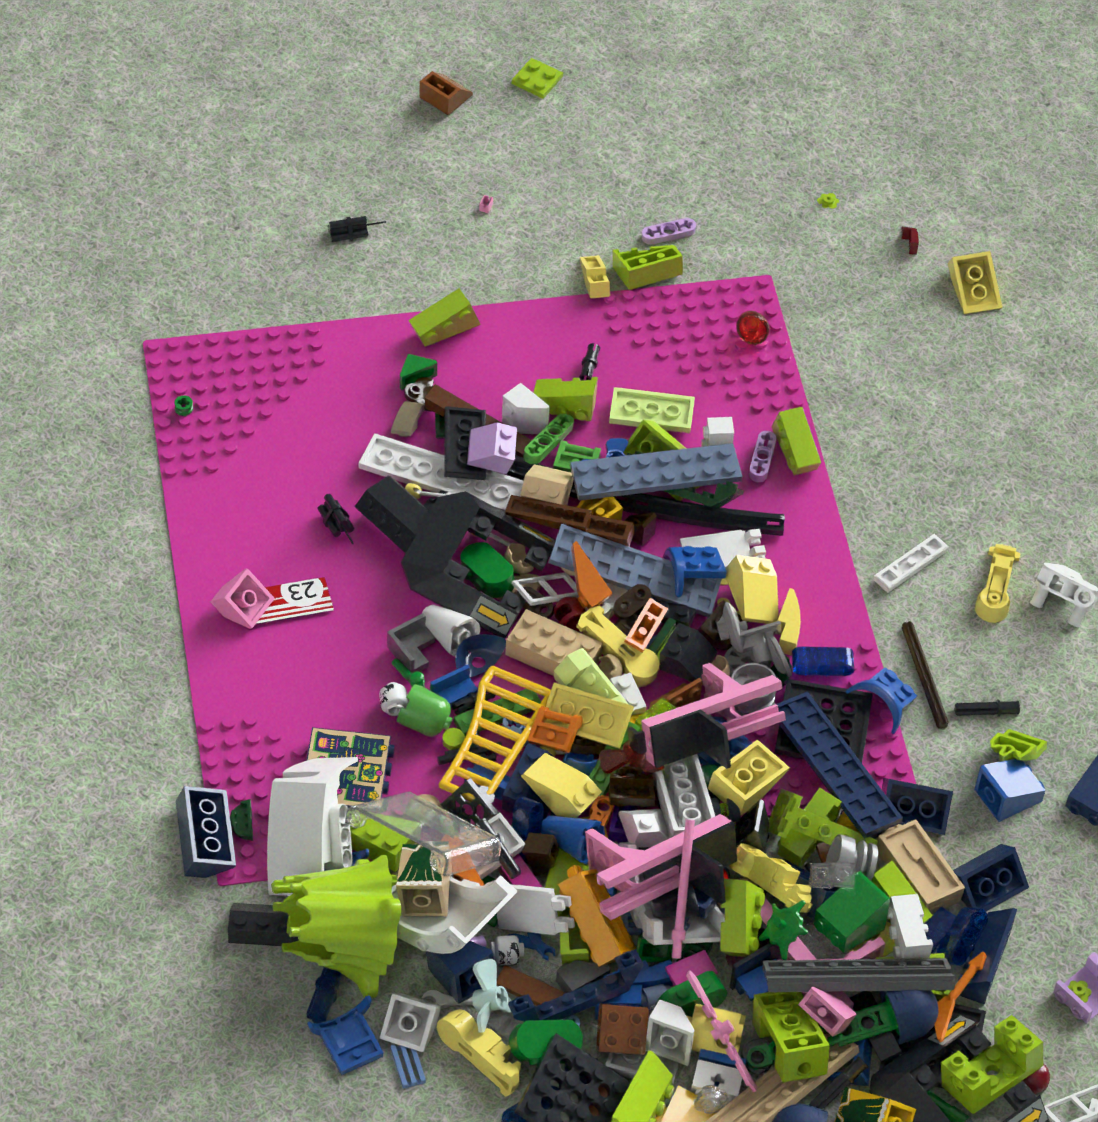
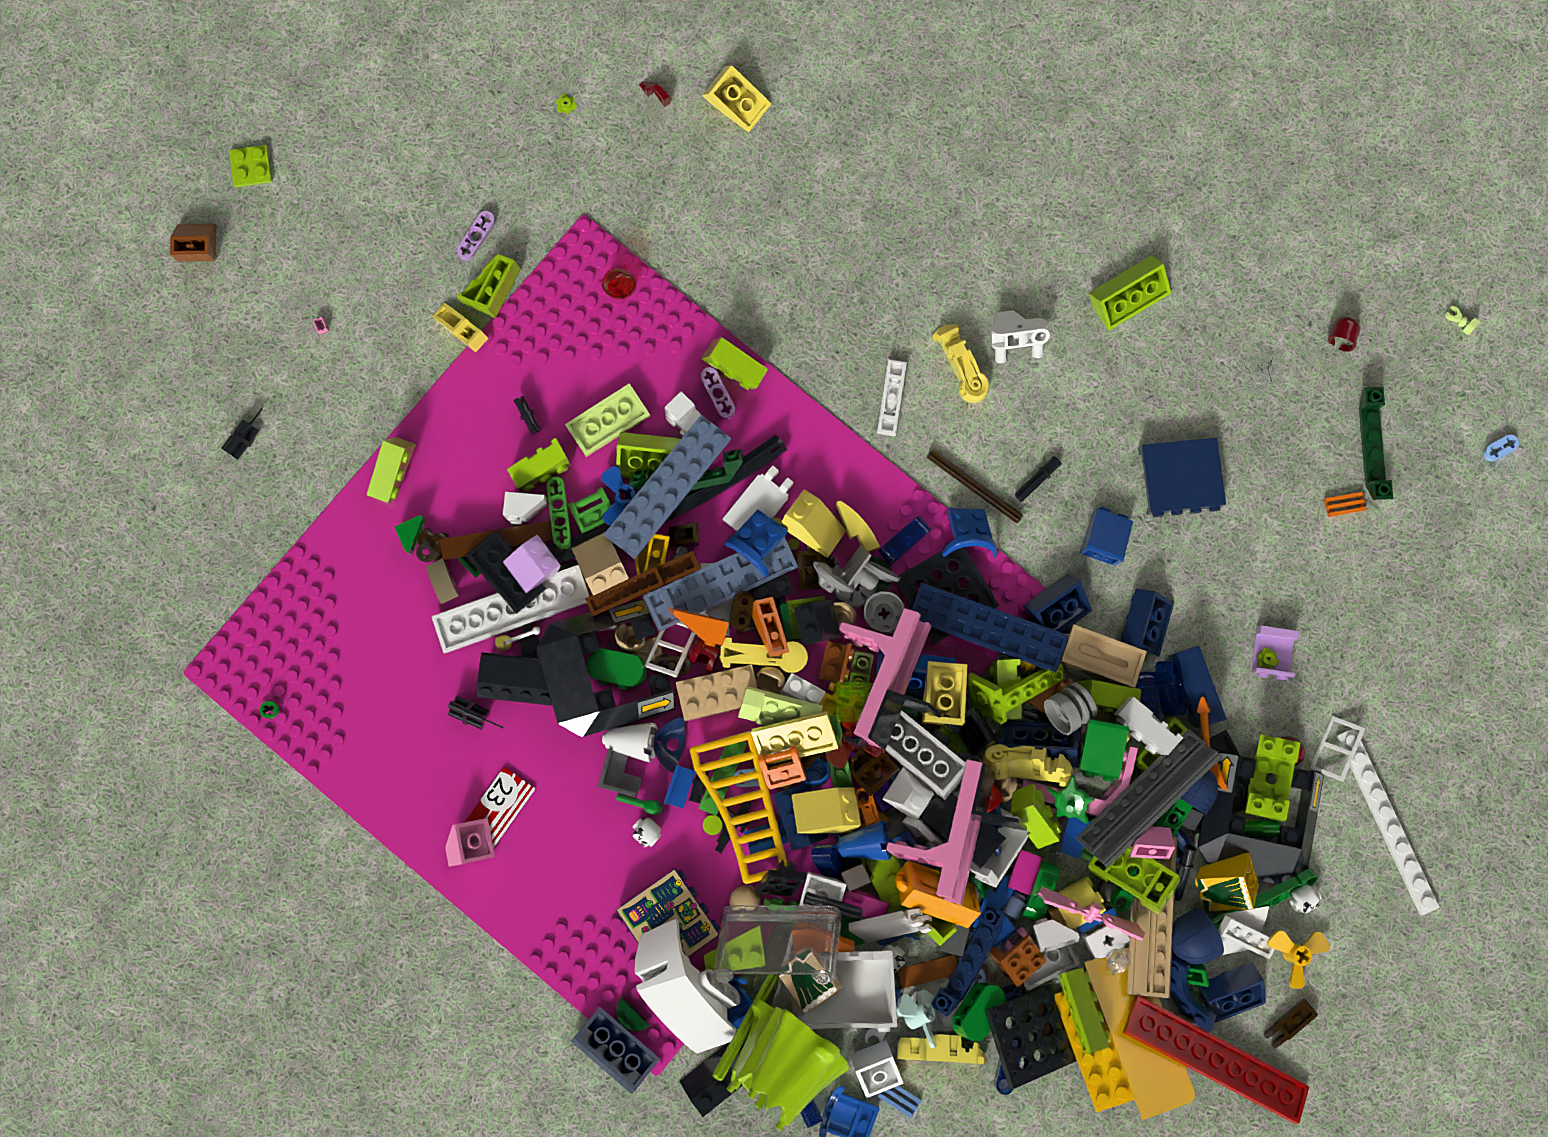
camera: 45 degrees left, 30 degrees up
(425, 712) = (680, 827): bright green cylinder -> none
(679, 933) = (1005, 865): bright pink bar -> none
(832, 874) = (1075, 739): clear slope -> none
(1017, 746) = (1086, 499): lime plate -> none

